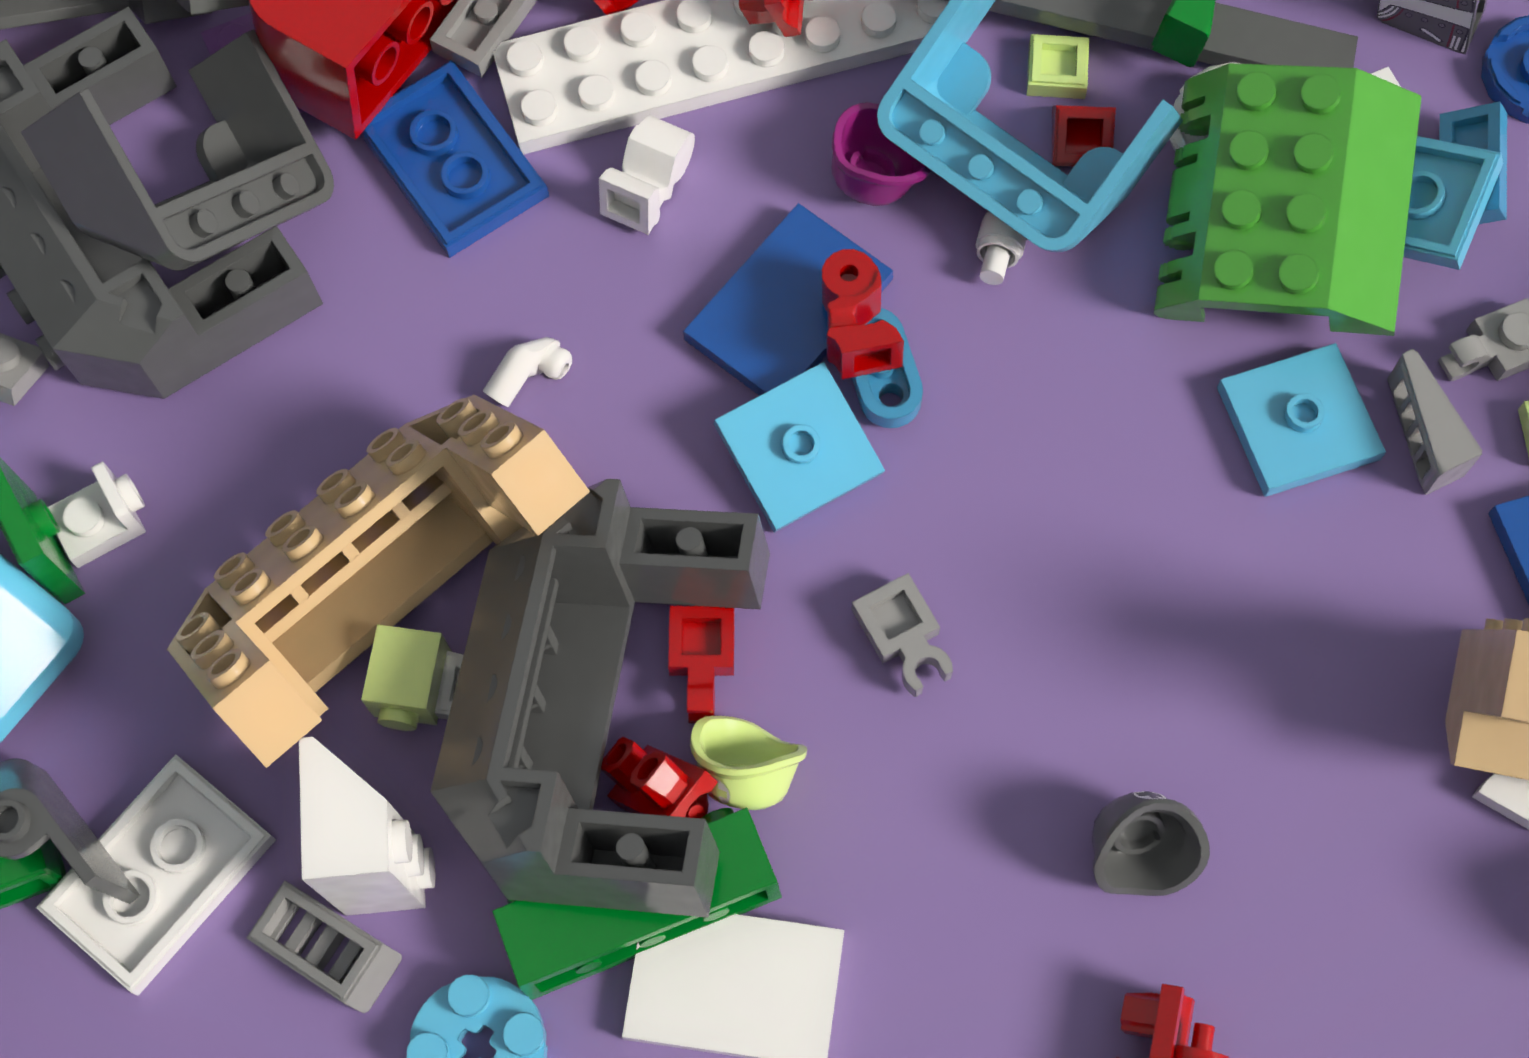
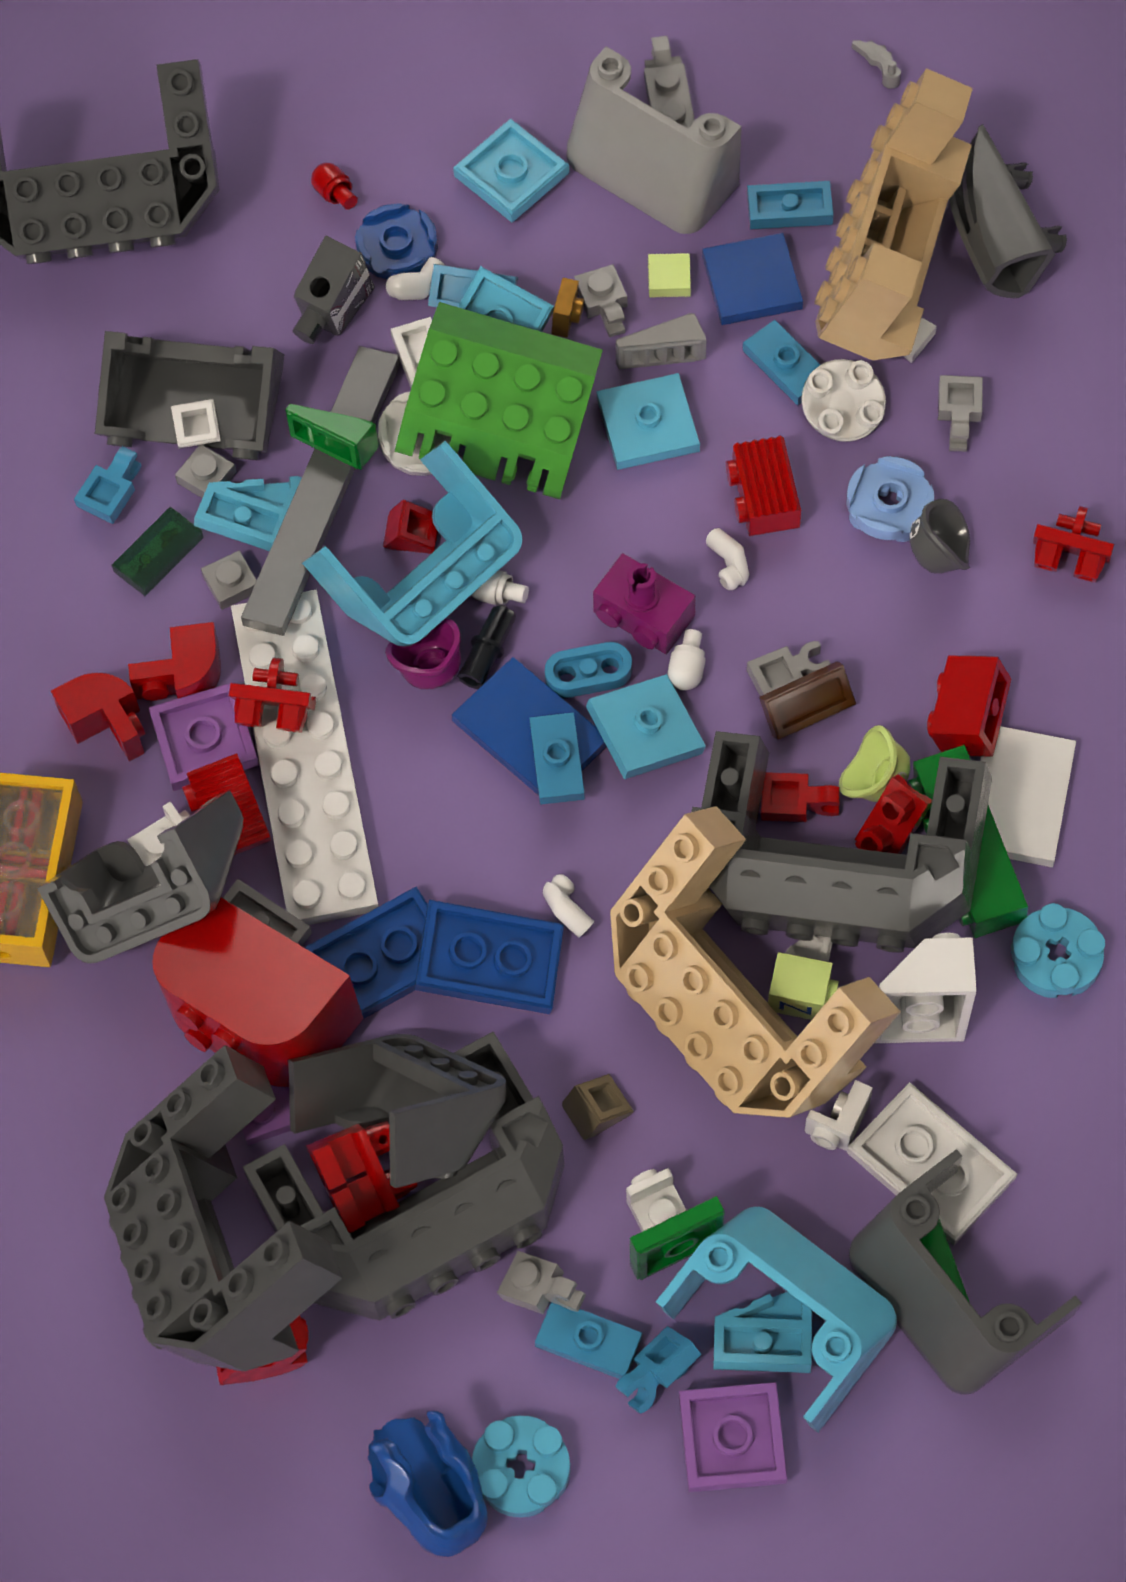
camera: 85 degrees left, 5 degrees down
(152, 130) = (354, 1175): none -> red hips
(216, 751) = (847, 1111): none -> white bracket
(248, 434) = (596, 1106): none -> dark tan slope
(359, 970) = (1009, 1019): light grey slope -> none
(445, 279) = (489, 957): none -> blue tile
(650, 167) = (409, 809): white leg -> none
(735, 333) = (557, 758): none -> dark azure plate
(853, 299) = (540, 673): red leg -> none
(857, 663) = (807, 700): none -> reddish brown tile
(861, 896) = (969, 704): none -> red brick
(907, 238) = (487, 647): none -> black axle
(907, 497) = (687, 662): none -> white cylinder
(989, 429) = (643, 604): none -> magenta brick
(1057, 66) = (354, 538): yellowish green tile -> none
(1087, 547) = (734, 556): none -> white arm
(1207, 582) = (765, 486): none -> red brick
(1246, 749) = (876, 480): none -> light blue plate
(1379, 691) = (843, 400): none -> white dish
(1402, 865) = (960, 403): none -> light grey plate
(1435, 606) = (781, 359): none -> dark azure plate
(1468, 288) = (567, 308): none -> pearl gold plate
(1469, 88) = (412, 285): none -> white arm

